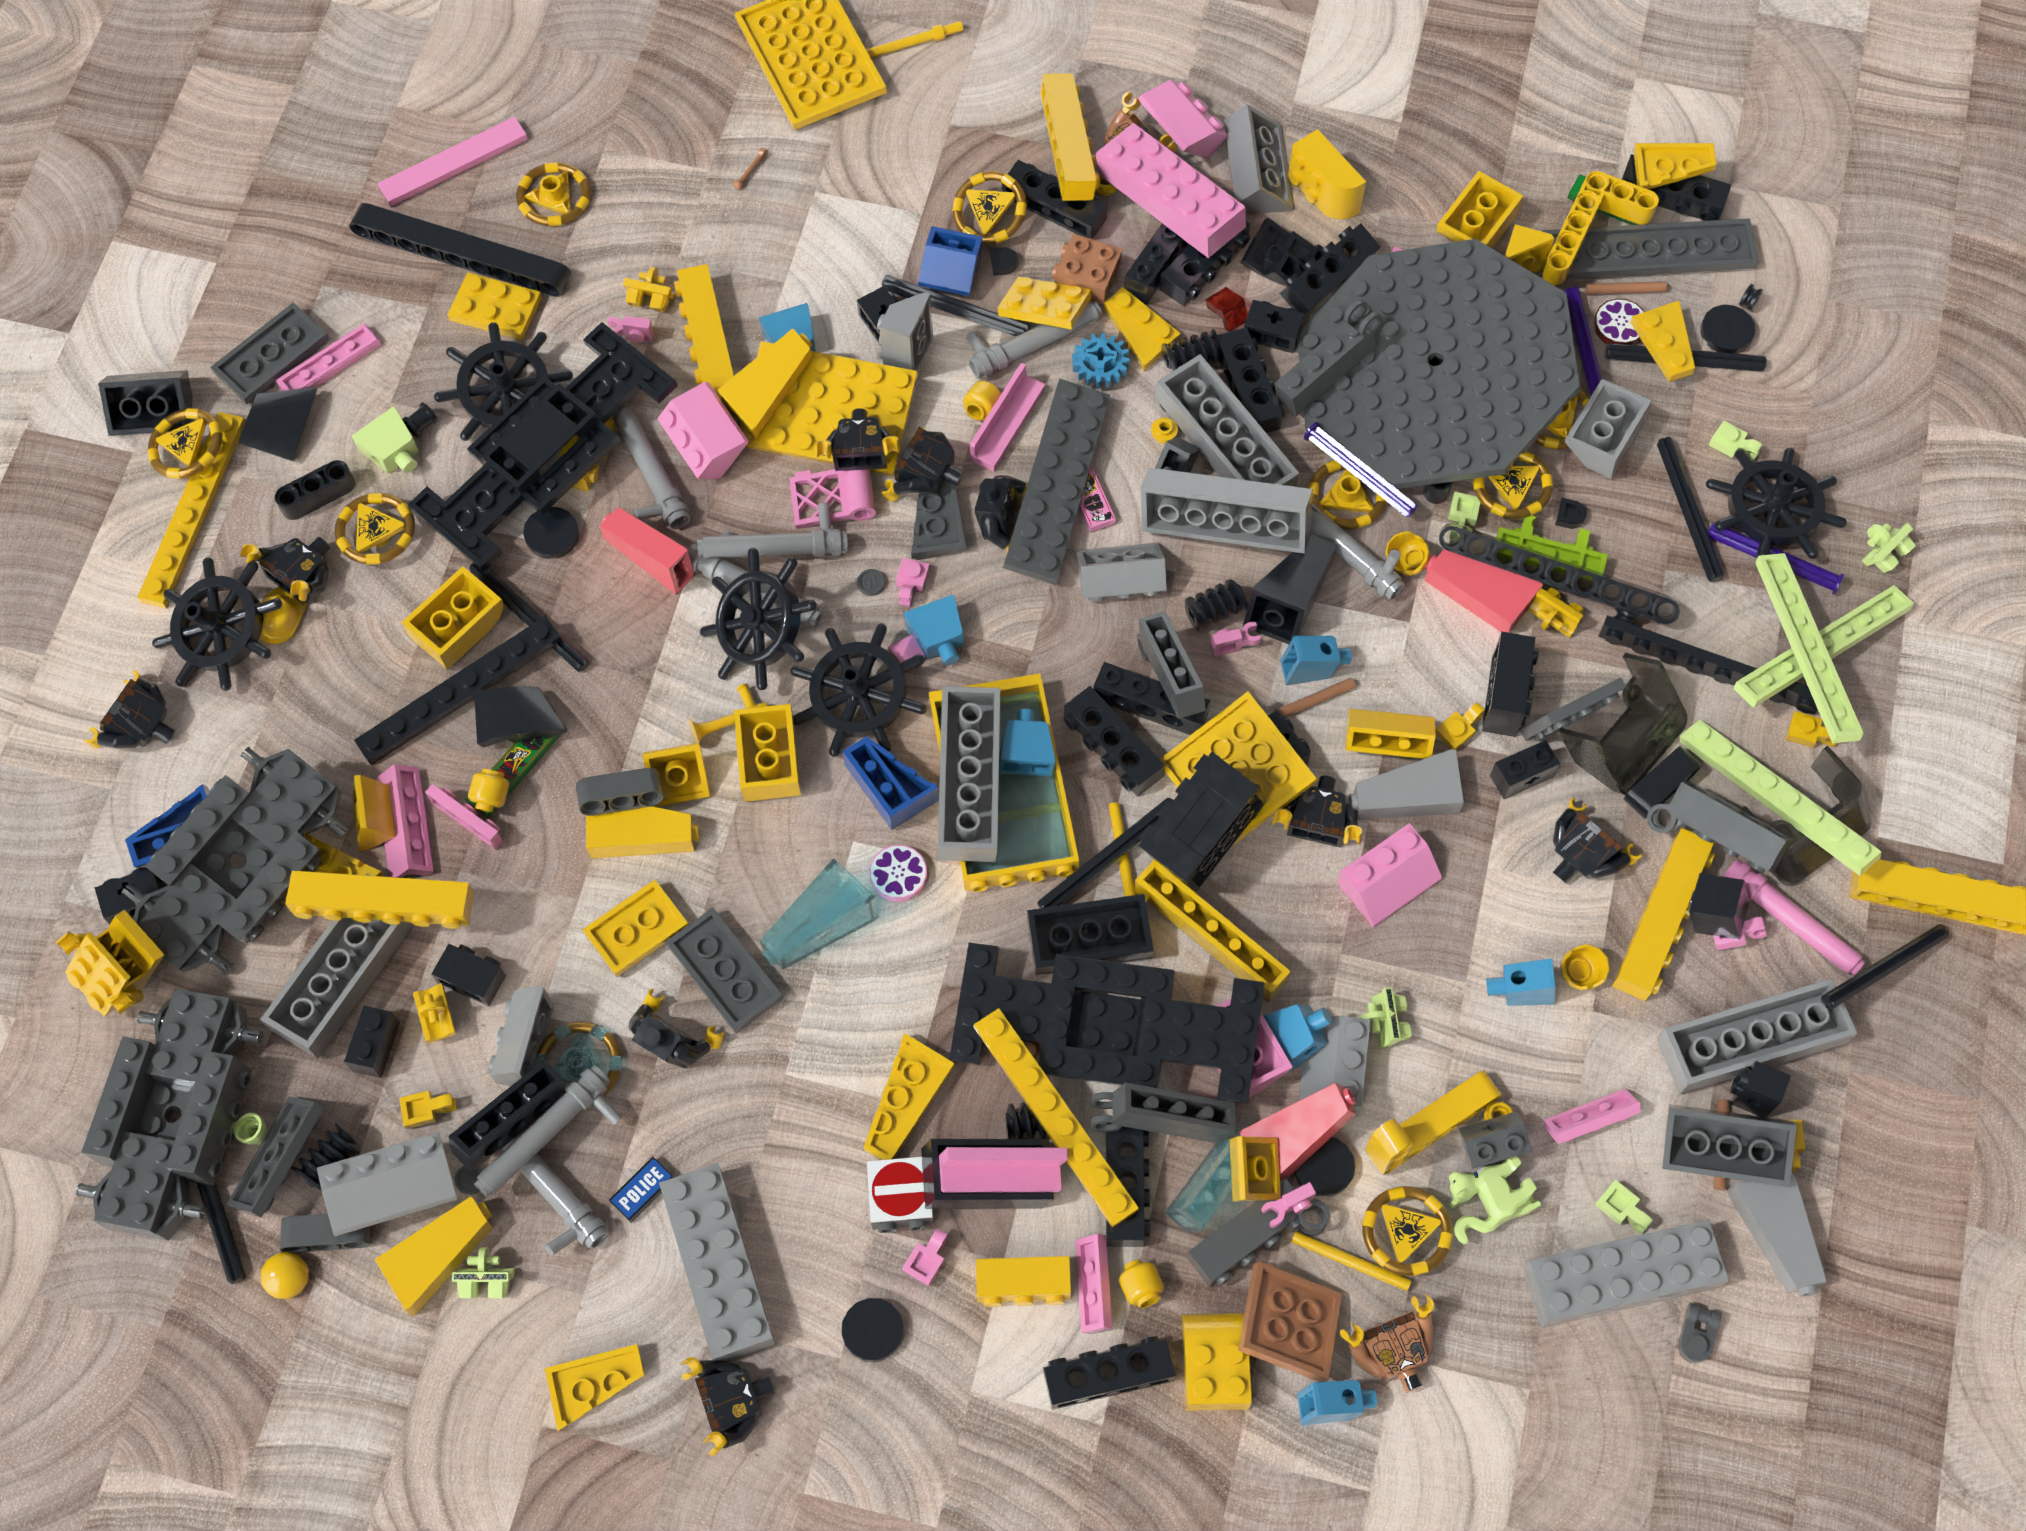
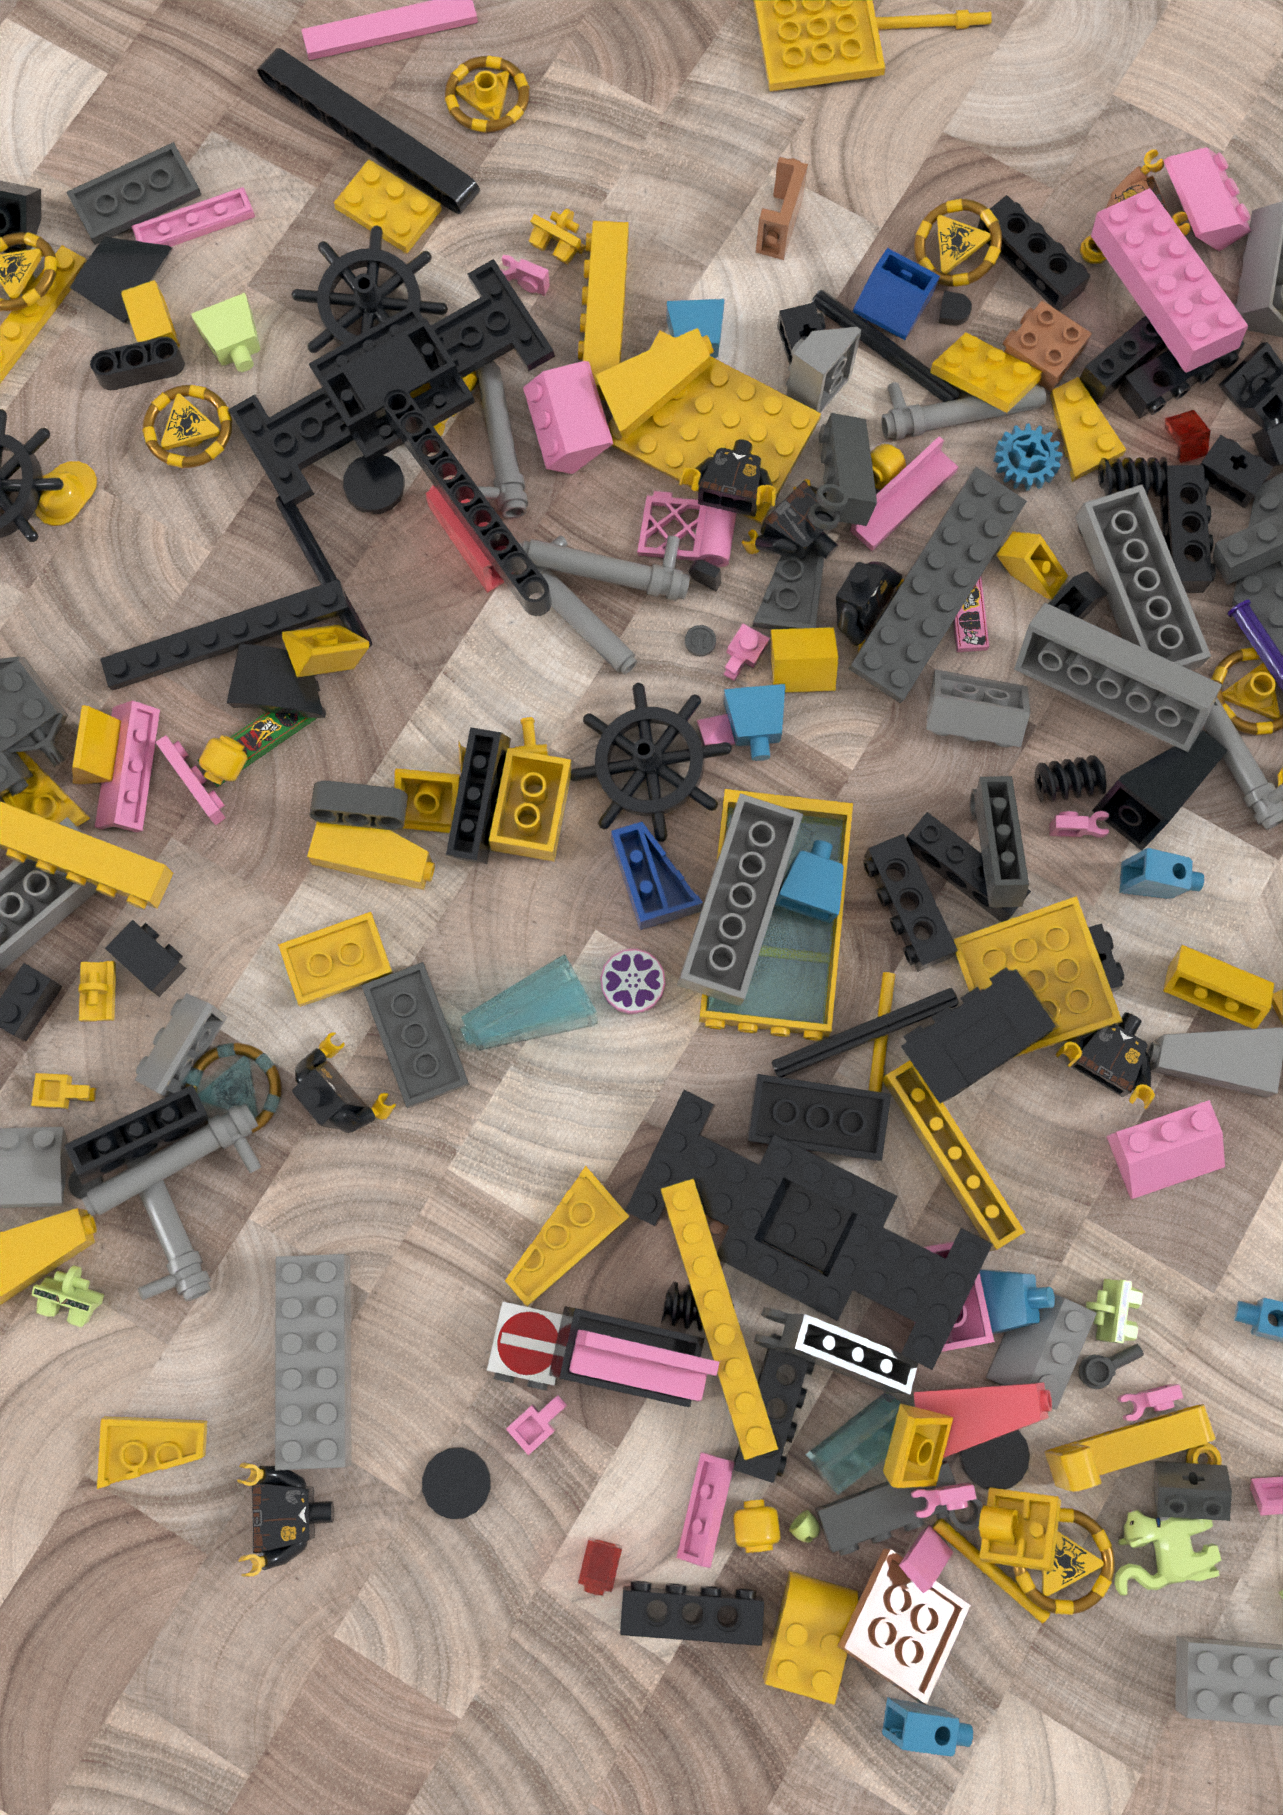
camera: 15 degrees right, 10 degrees up
(293, 566) = (90, 444): torso -> none
(312, 445) = (149, 312): none -> yellow panel
(420, 419) = (270, 315): black bush -> none
(454, 618) = (242, 552): yellow brick -> none
(550, 677) = (324, 649): none -> yellow slope
(640, 1190) = (259, 1251): tile -> none
(644, 528) = (470, 513): none -> black beam
(719, 756) = (477, 795): none -> black brick
(738, 184) = (726, 109): nougat hinge -> none
(757, 618) = (565, 653): black piece -> none
(834, 234) = (775, 227): none -> nougat panel
(859, 527) = (706, 574): none -> black tile
(953, 412) = (847, 473): none -> dark grey hinge
(964, 571) = (804, 659): none -> yellow slope
(1017, 1358) = (599, 1566): none -> clear red brick
(1023, 1280) = (631, 1482): yellow brick -> none
(1069, 137) = (1071, 184): yellow brick -> none
(1130, 442) = (1032, 563): none -> yellow slope
(1164, 436) = (1070, 565): yellow plate -> none
(1183, 1273) = (805, 1527): none -> yellowish green hinge
(1291, 1263) = (926, 1559): none -> bright pink tile
(1317, 697) = (1148, 918): nougat bar -> none
(1361, 1212) = (1019, 1529): none -> yellow plate
(1388, 1071) = (1098, 1371): none -> dark grey plate
(1395, 1346) = (1011, 1685): torso -> none
(1444, 1076) = (1160, 1398): none -> bright pink plate

